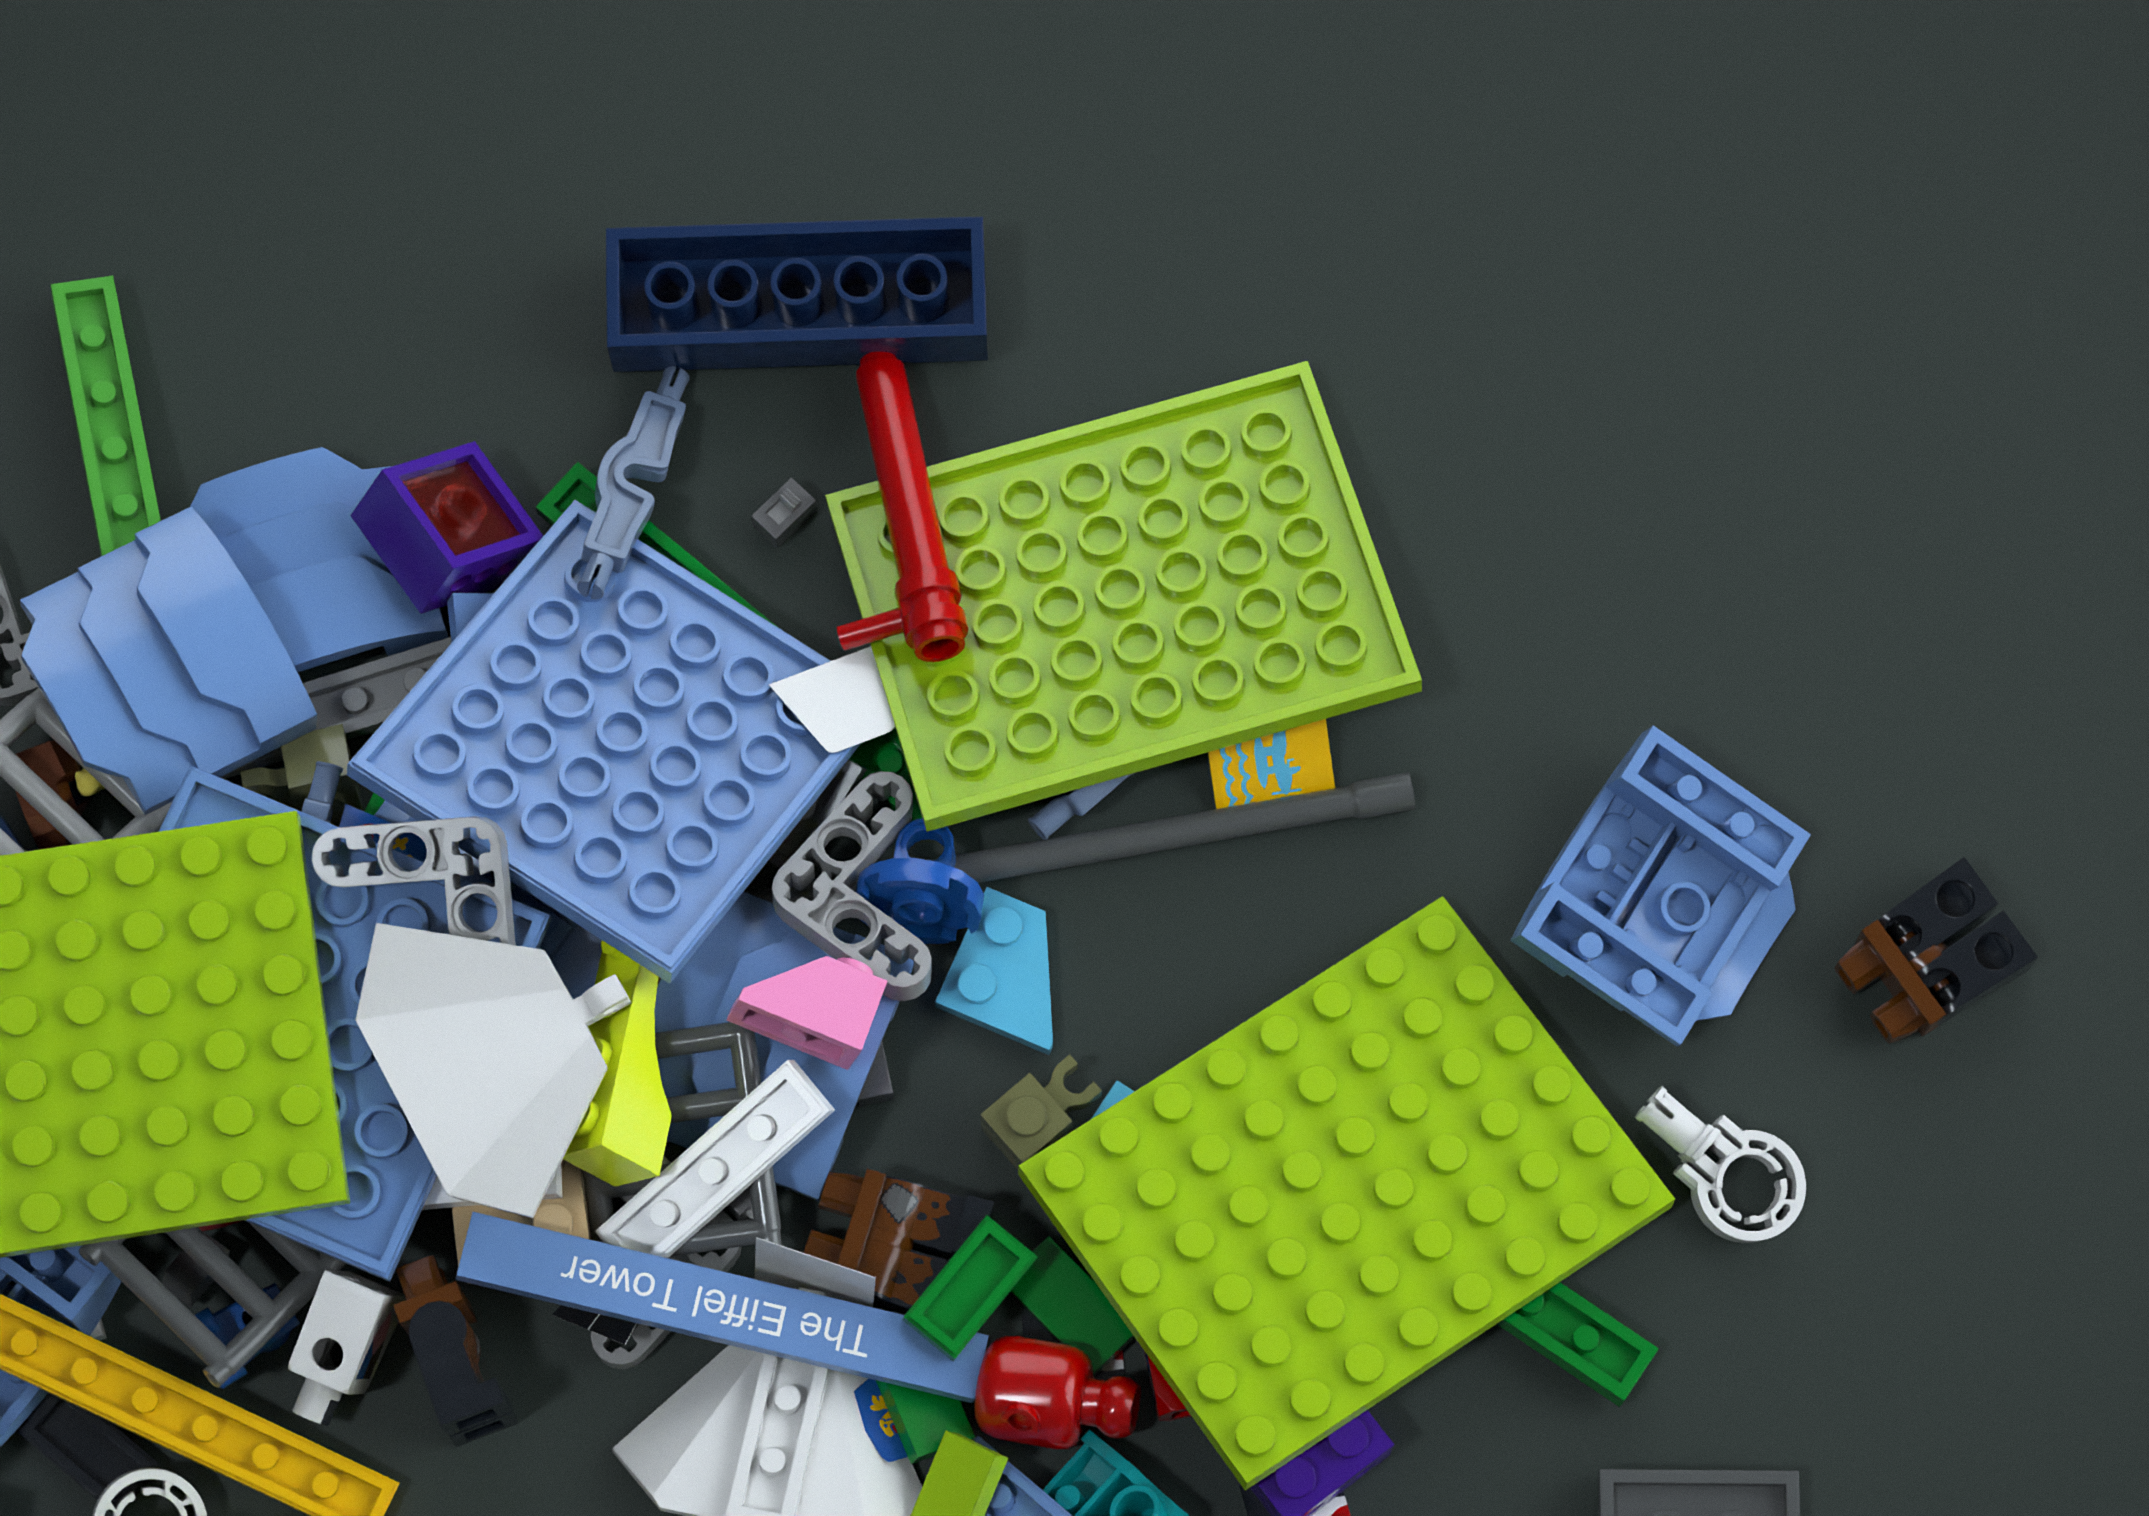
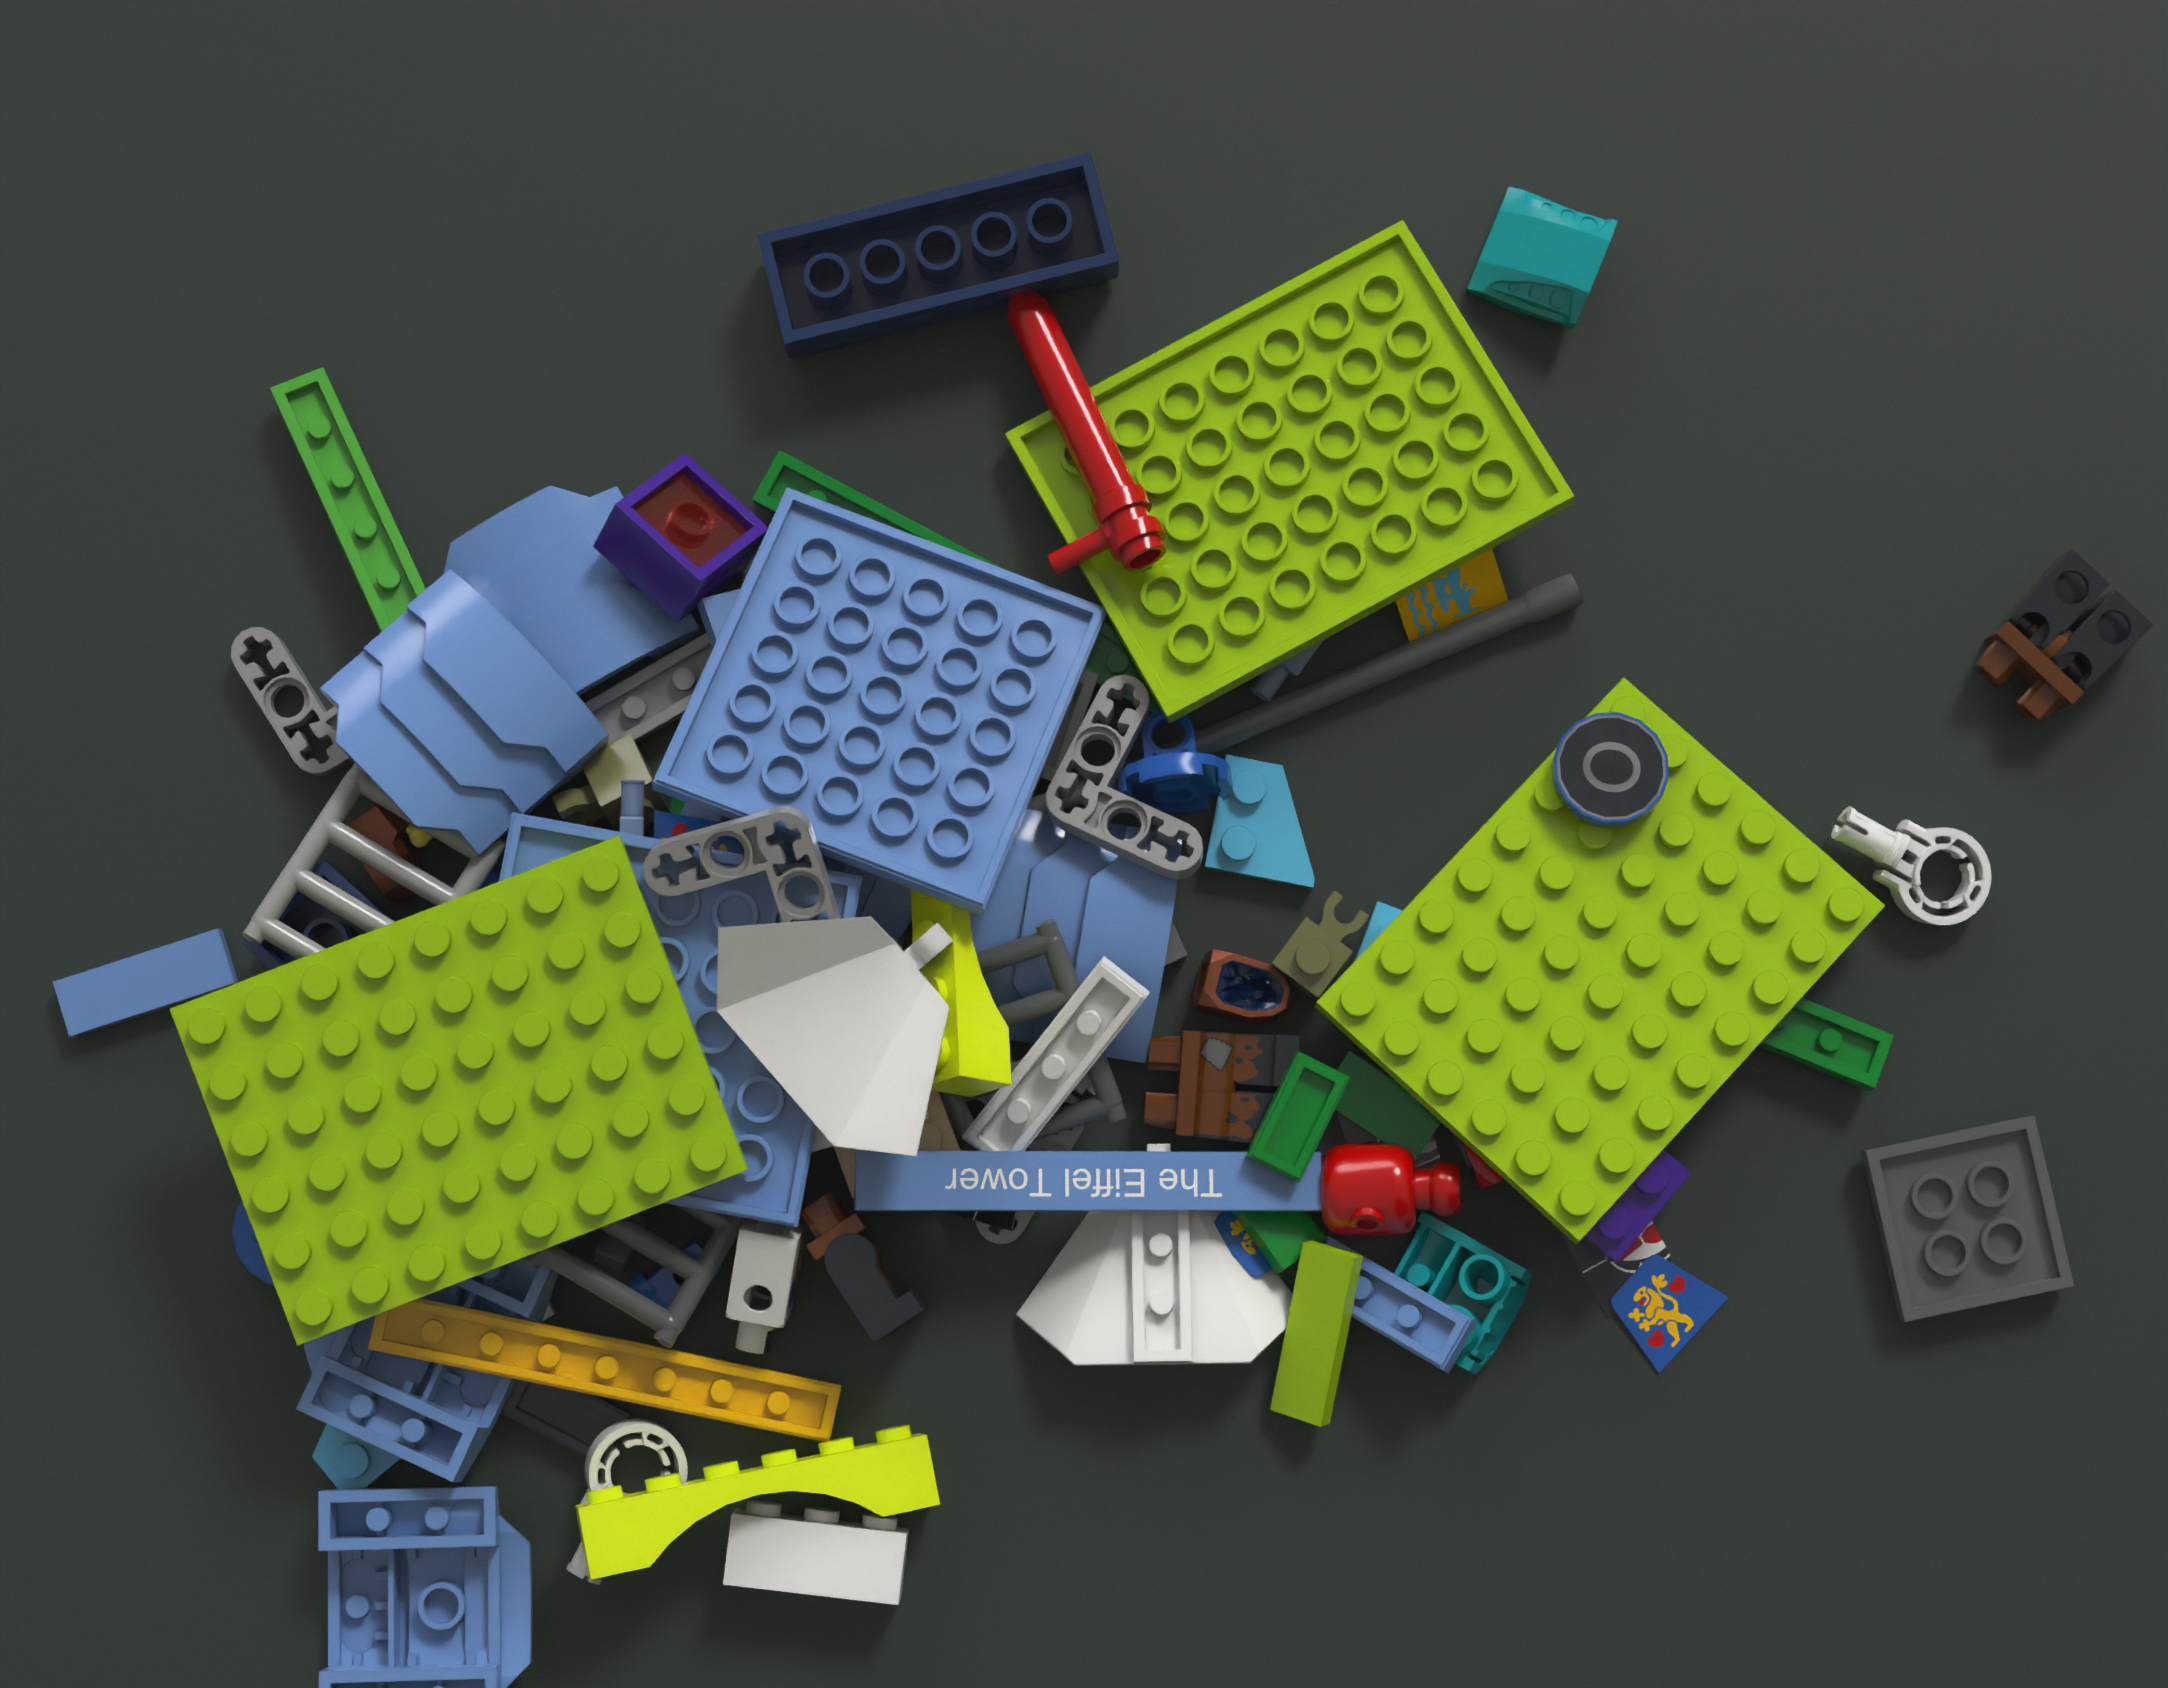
camera: 15 degrees left, 10 degrees up
(621, 505) = (831, 484): sand blue piece -> none
(784, 513) = (971, 455): flat silver piece -> none
(796, 1269) = (1141, 1134): white sticker -> none
(814, 1008) = (1116, 907): bright pink slope -> none
(839, 701) = (1065, 622): white sticker -> none
(943, 1141) = (1240, 988): none -> rock
(1400, 985) = (1610, 769): none -> black tile
(1448, 432) = (1541, 258): none -> teal slope
(1666, 890) = (1815, 631): medium blue slope -> none

